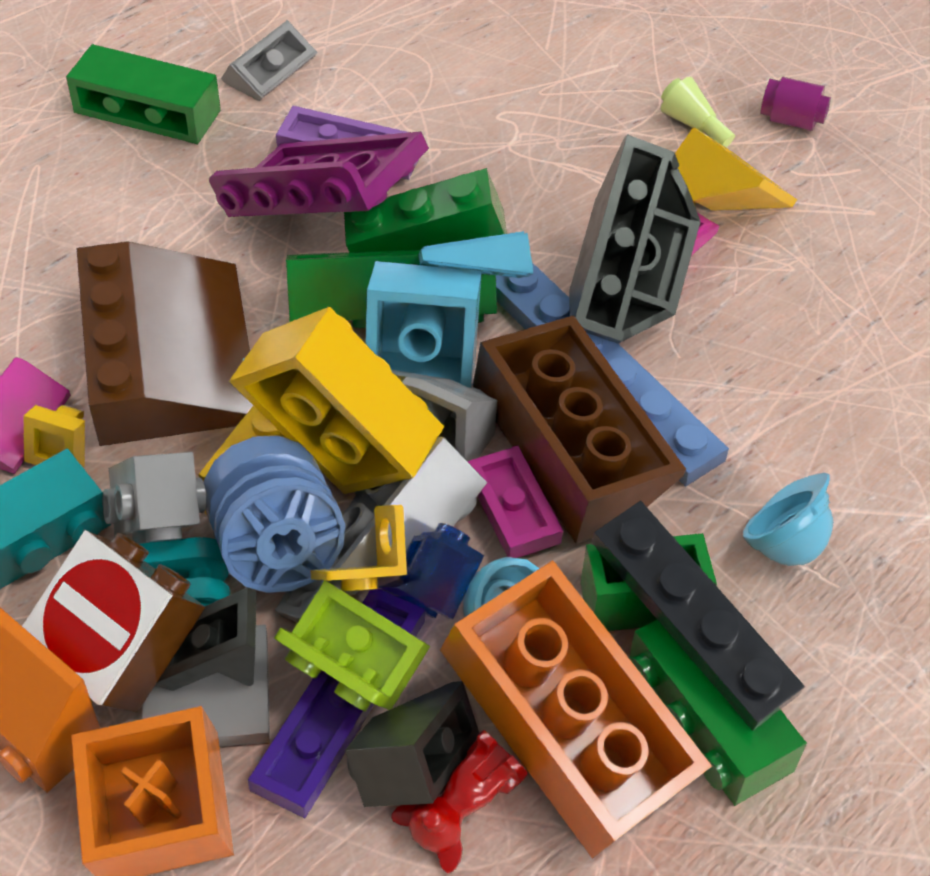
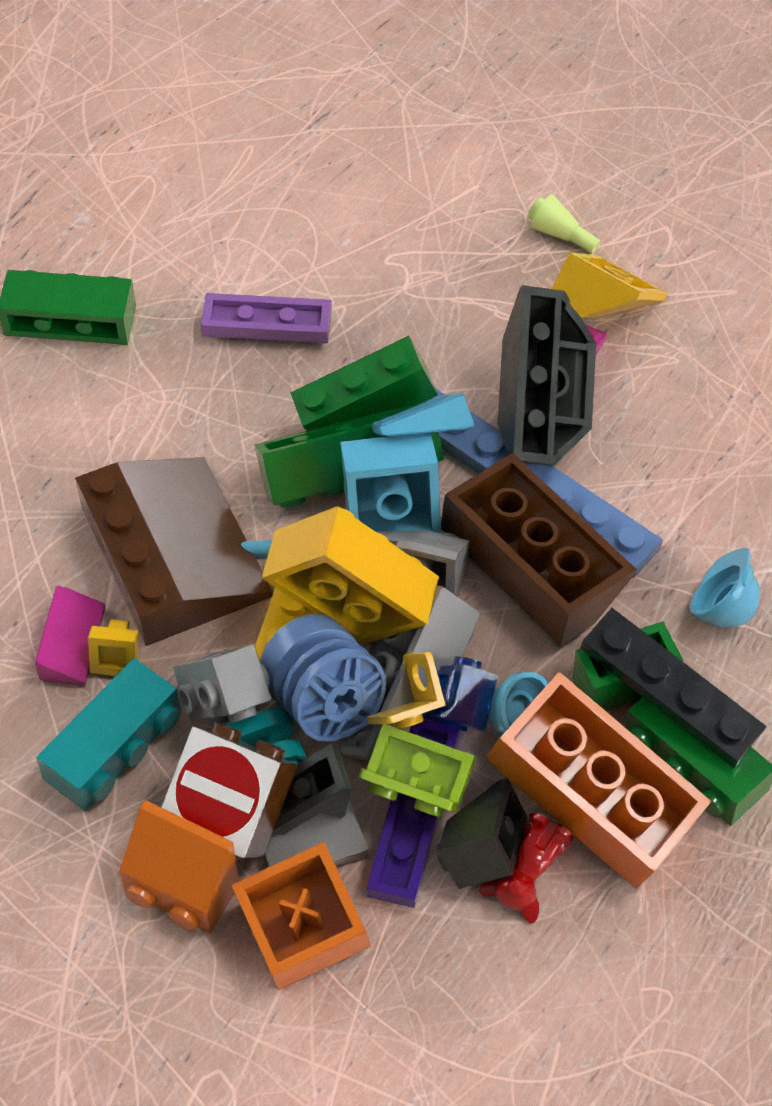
camera: 10 degrees left, 5 degrees up
(269, 62) = (166, 248): light grey slope -> none
(320, 176) = (261, 364): magenta bracket -> none
(516, 504) = (505, 623): dark pink plate -> none
(795, 103) = (646, 198): magenta brick -> none

